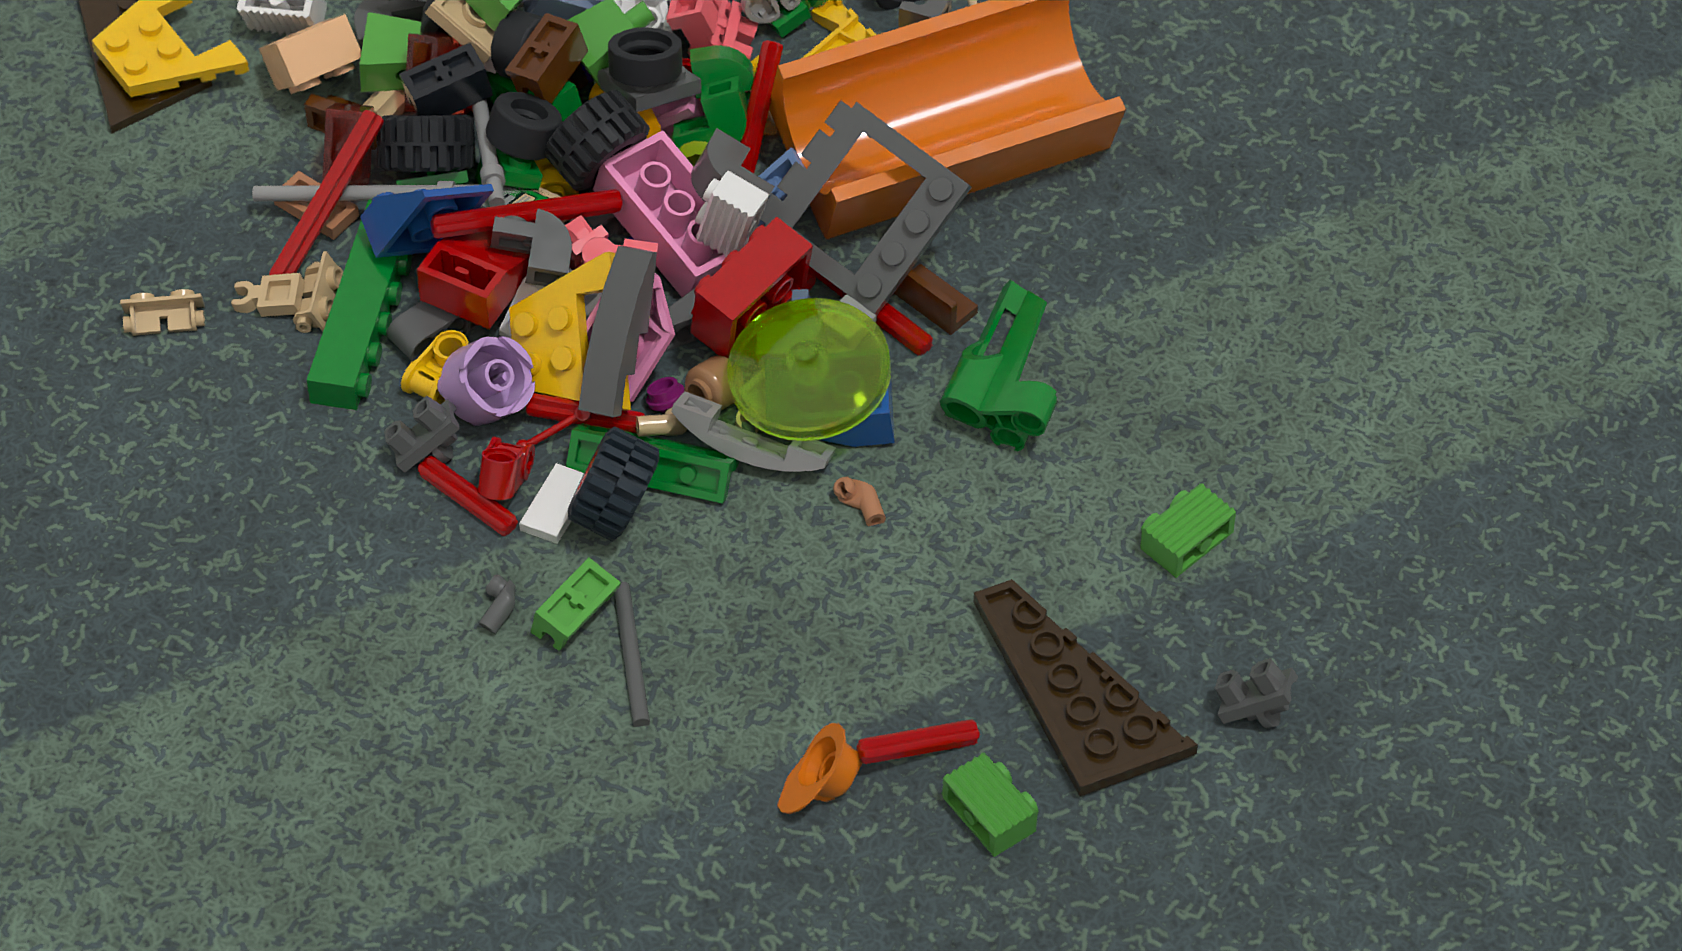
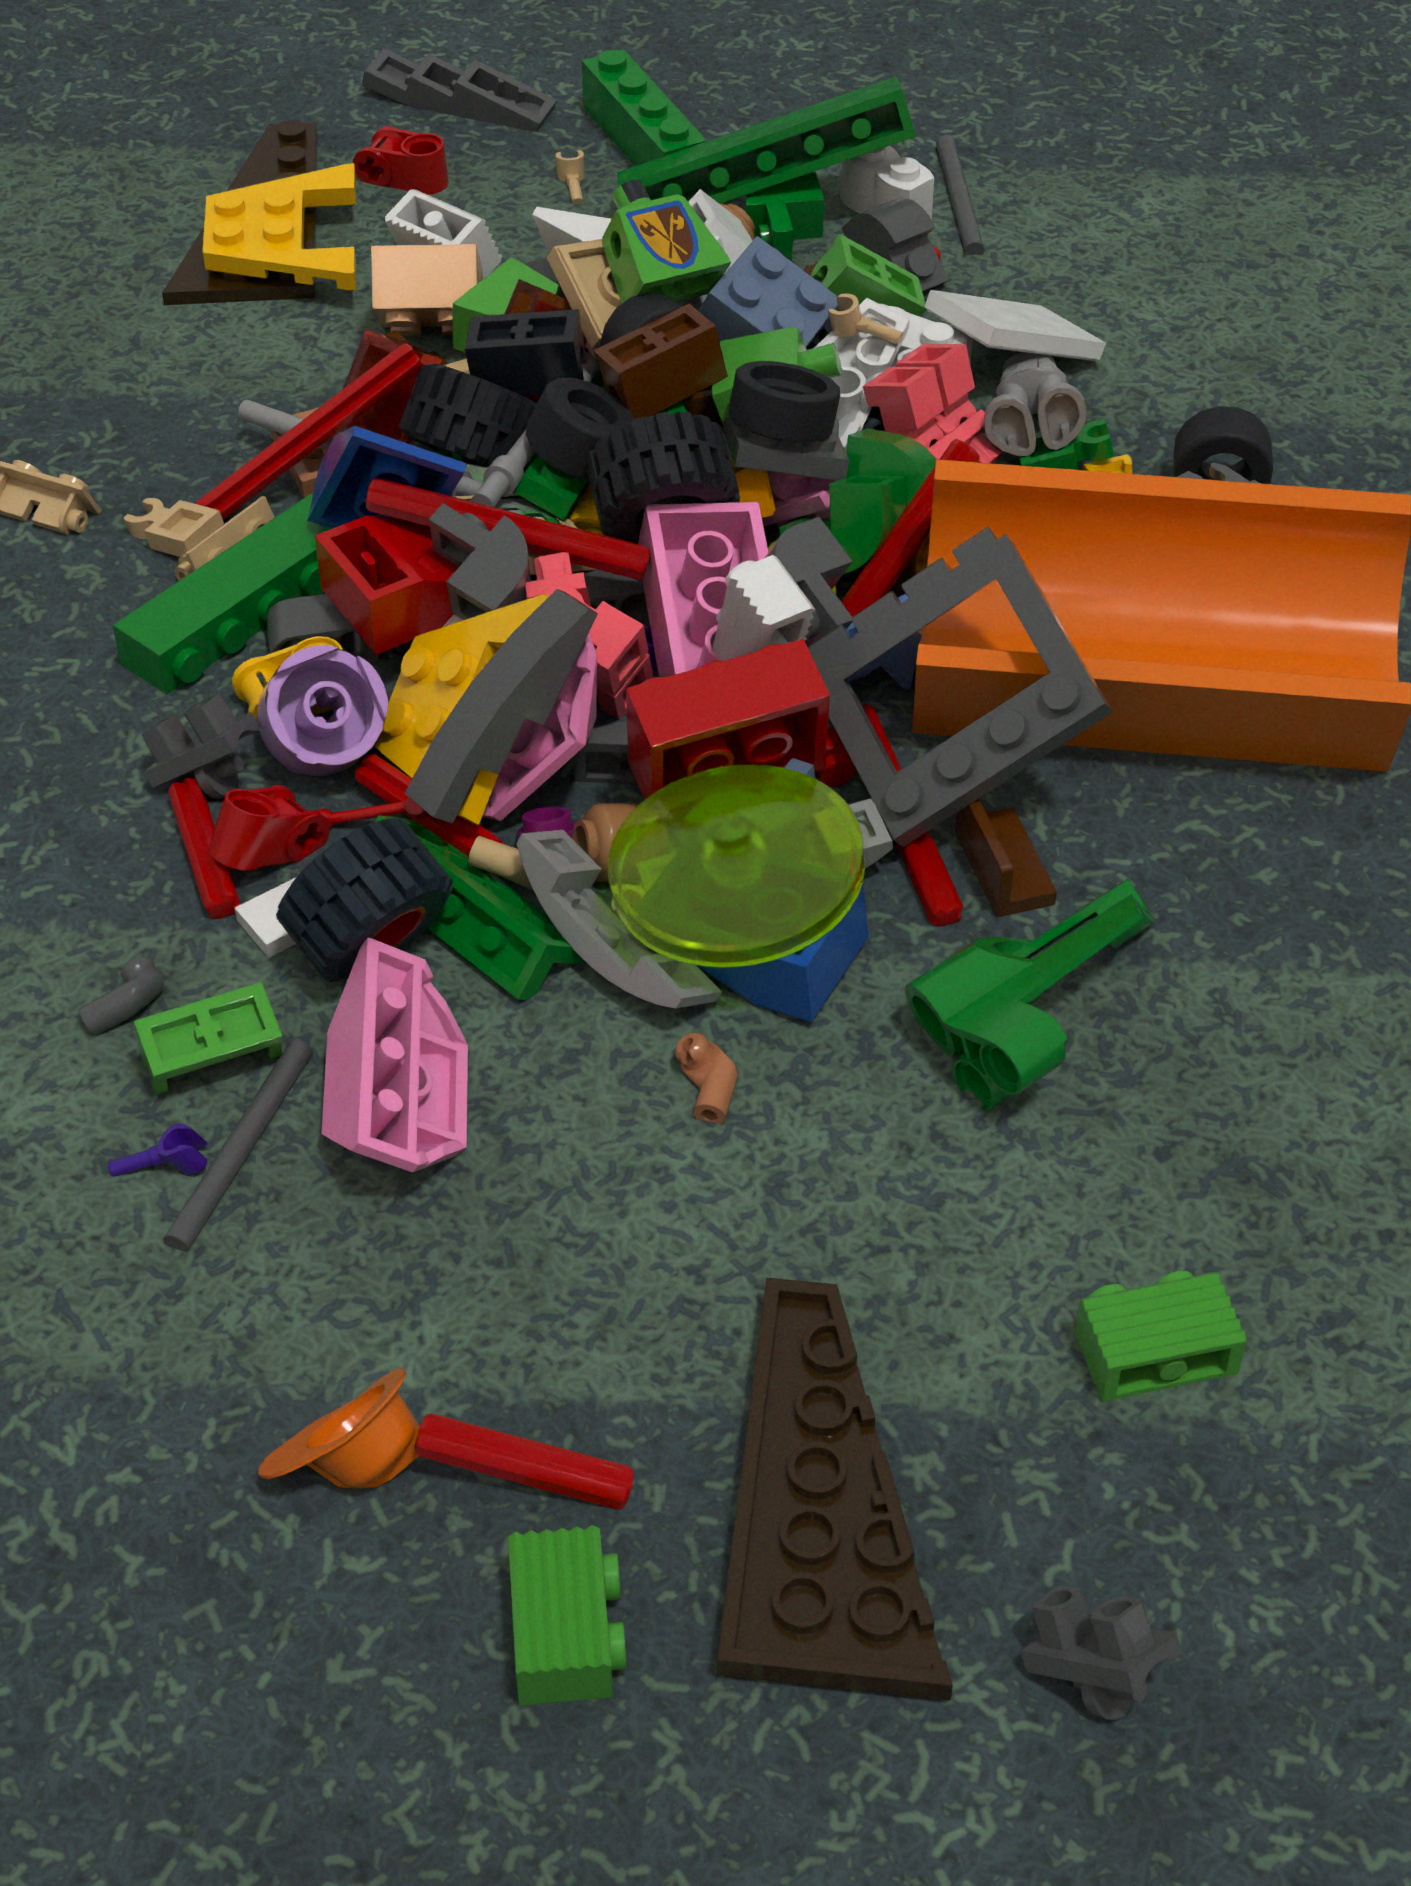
camera: 30 degrees right, 5 degrees down
(600, 674) = (177, 1146): none -> dark purple hand
(689, 571) = (395, 1064): none -> bright pink wedge

